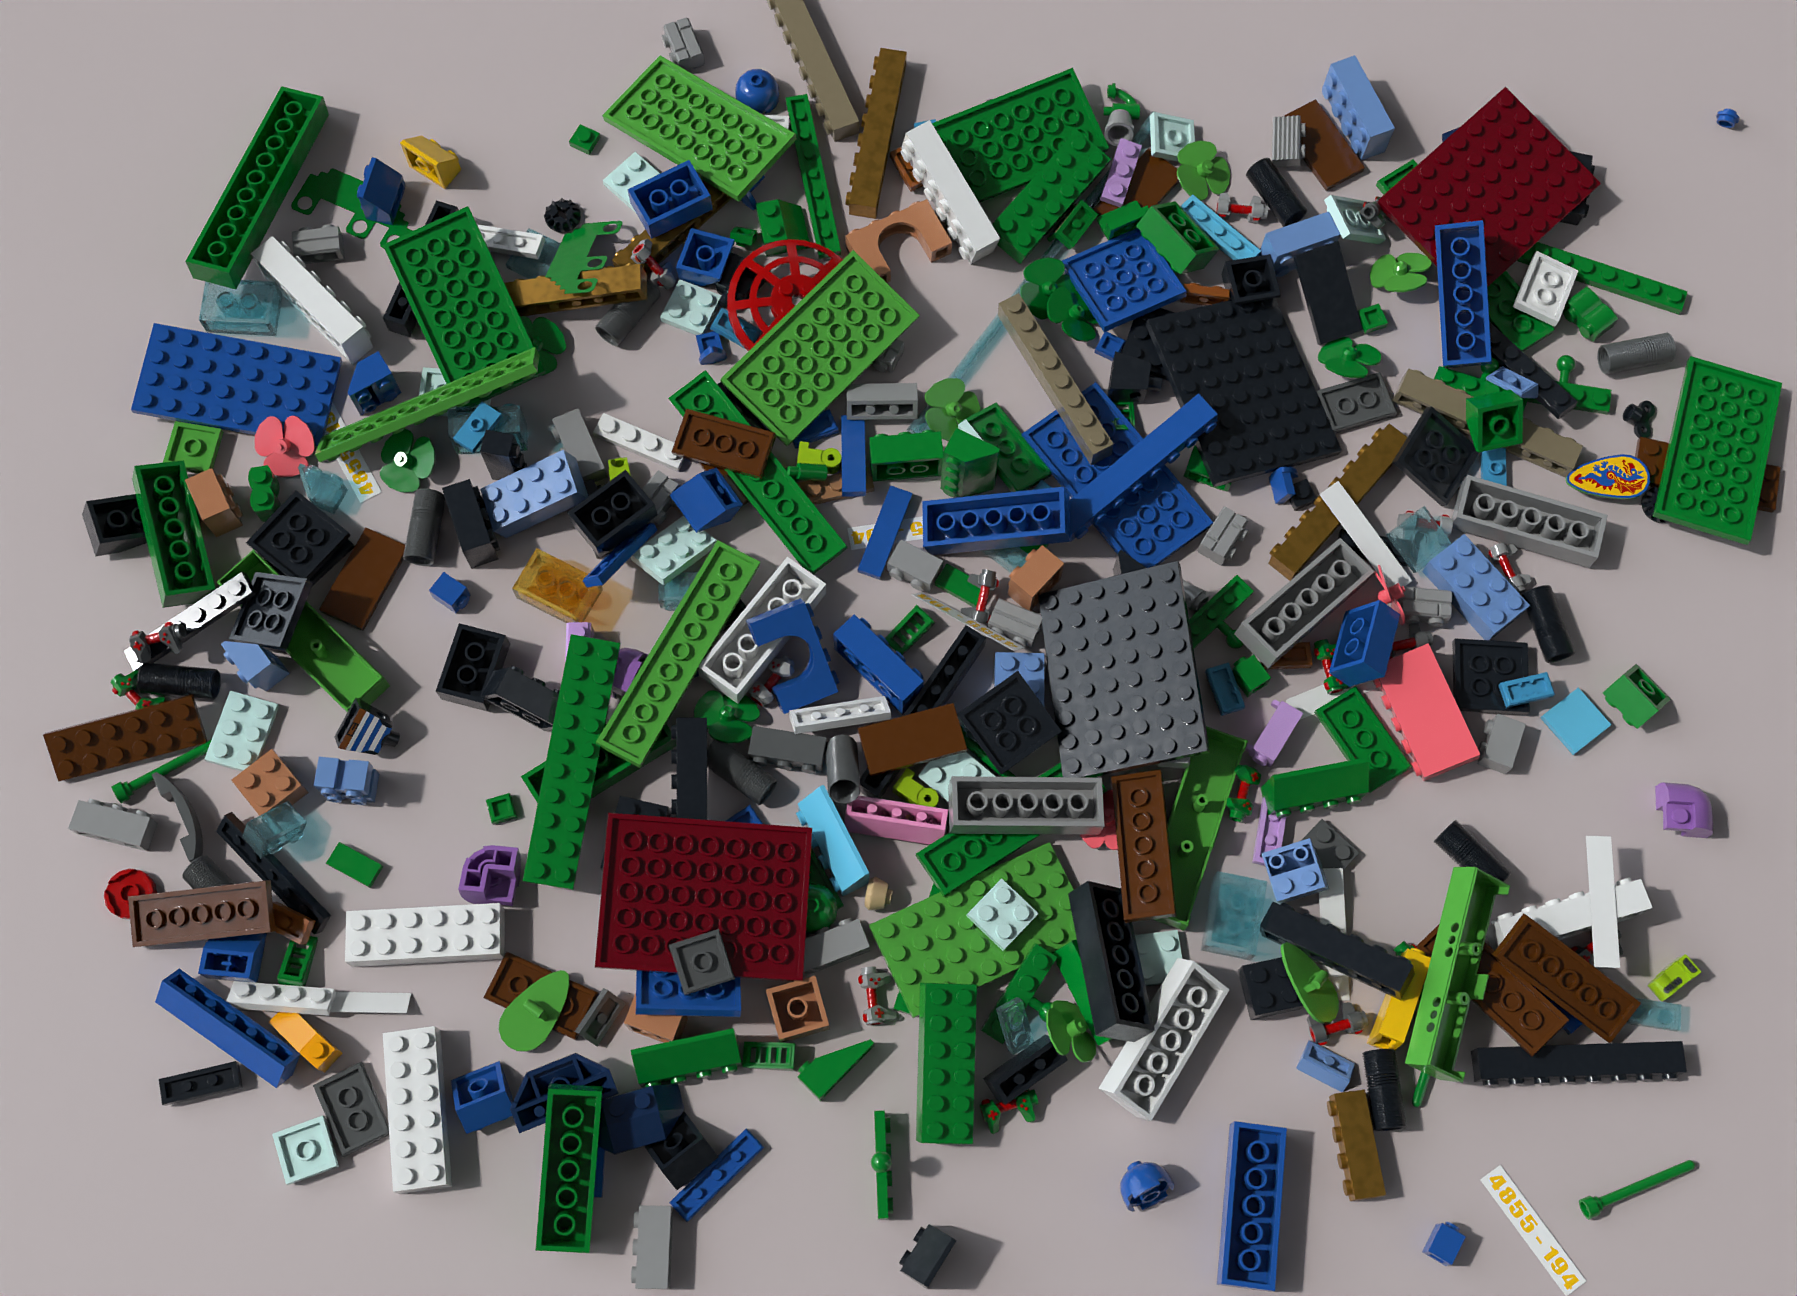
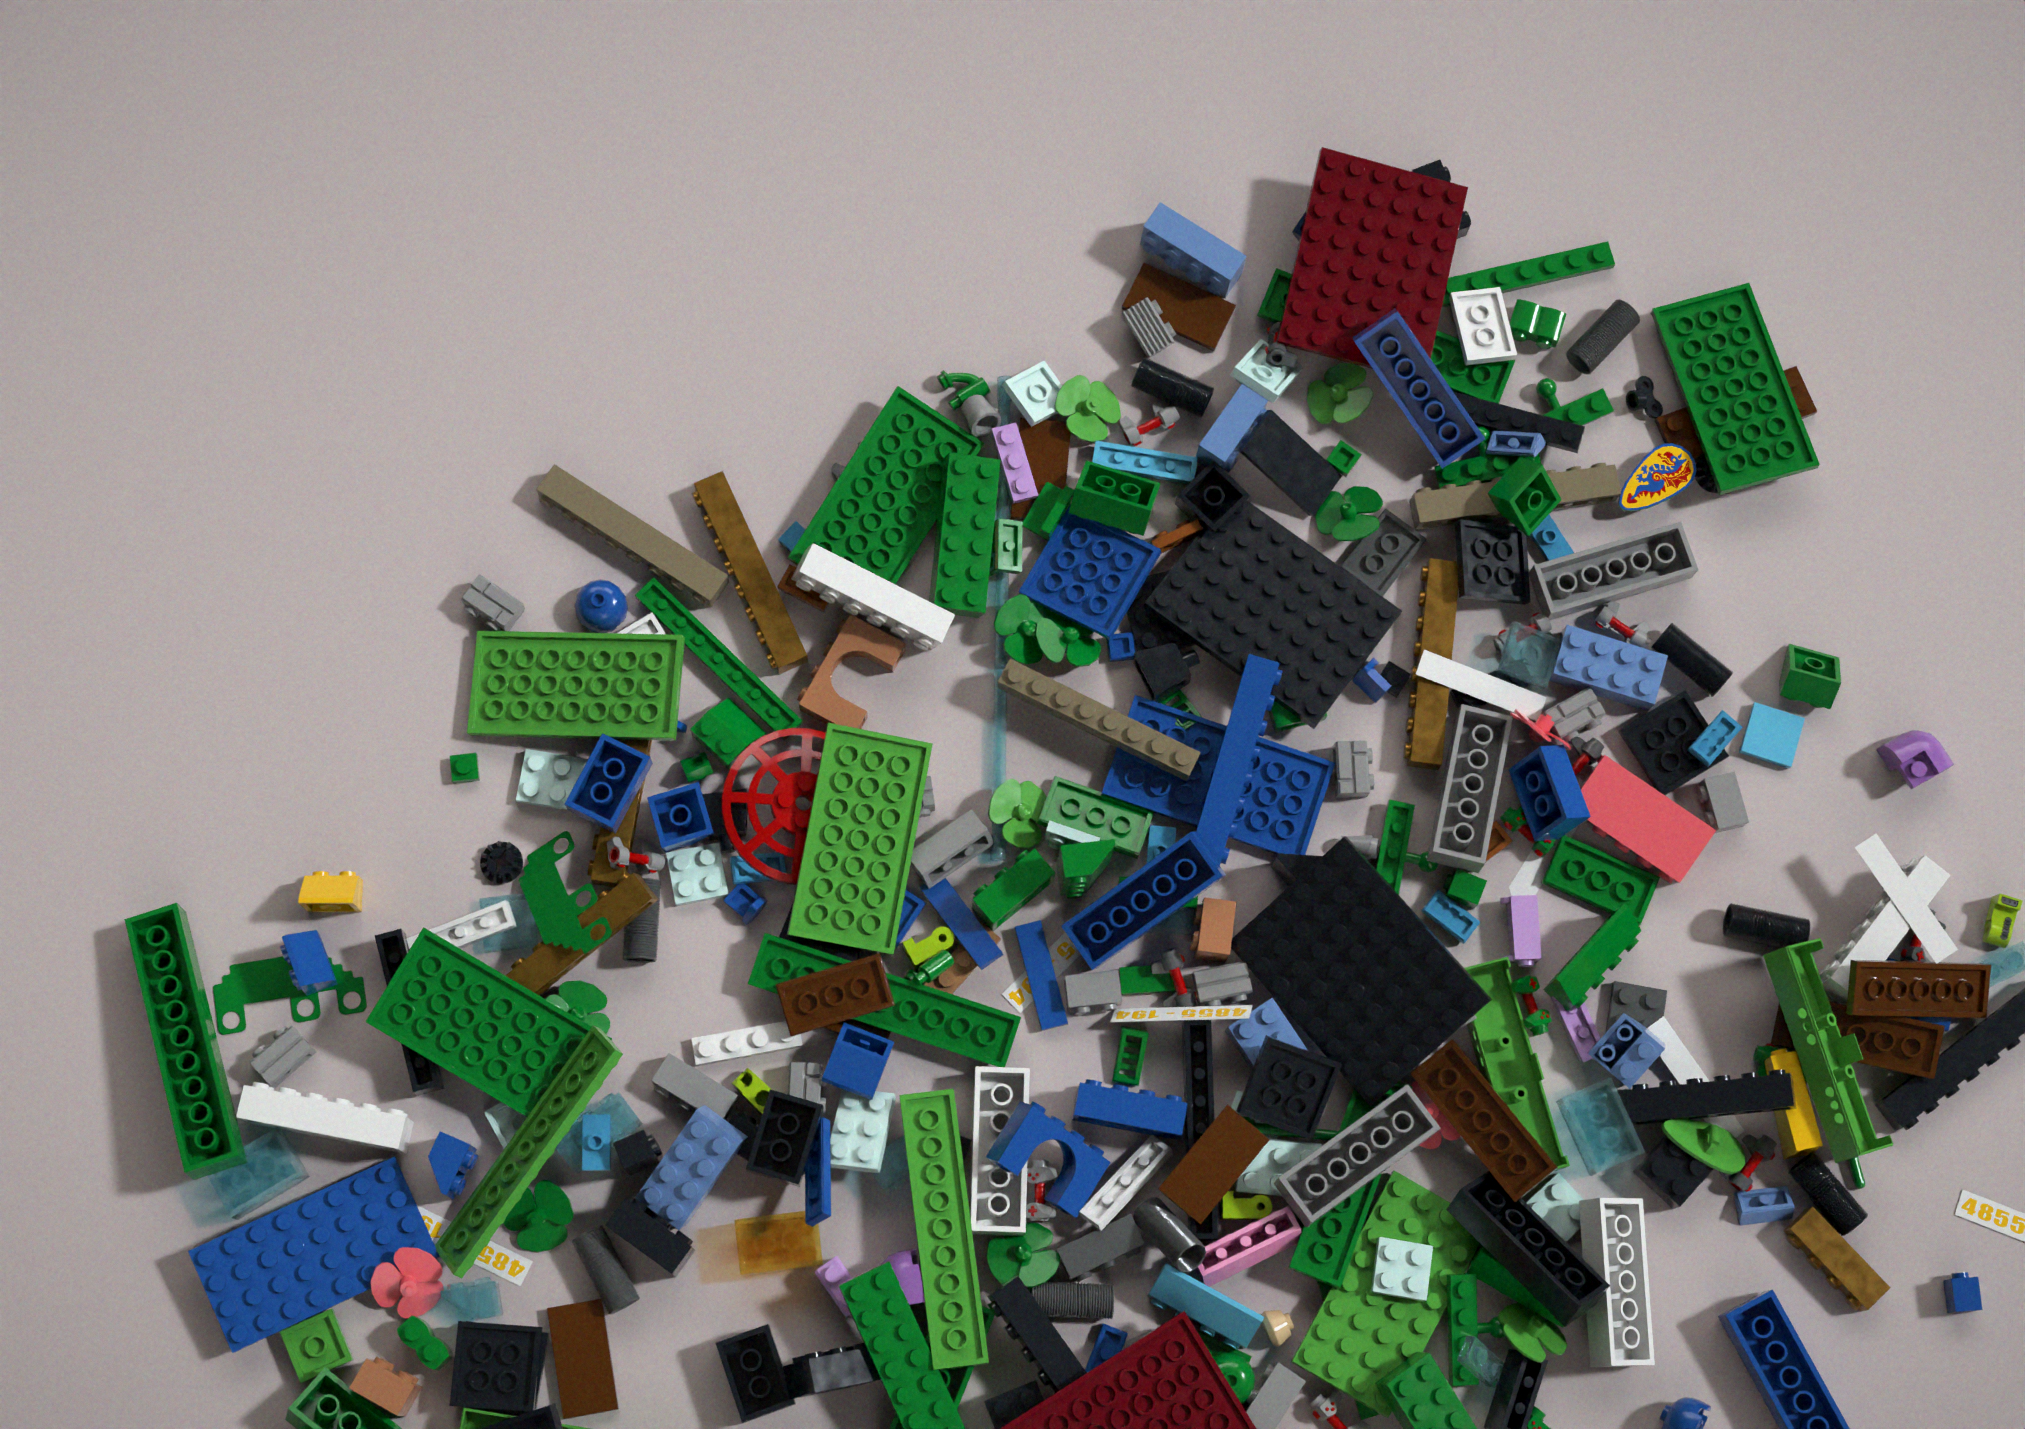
camera: 40 degrees left, 5 degrees up
(450, 593) = (678, 1316): blue brick -> none
(1727, 118) = (1534, 35): blue plate -> none

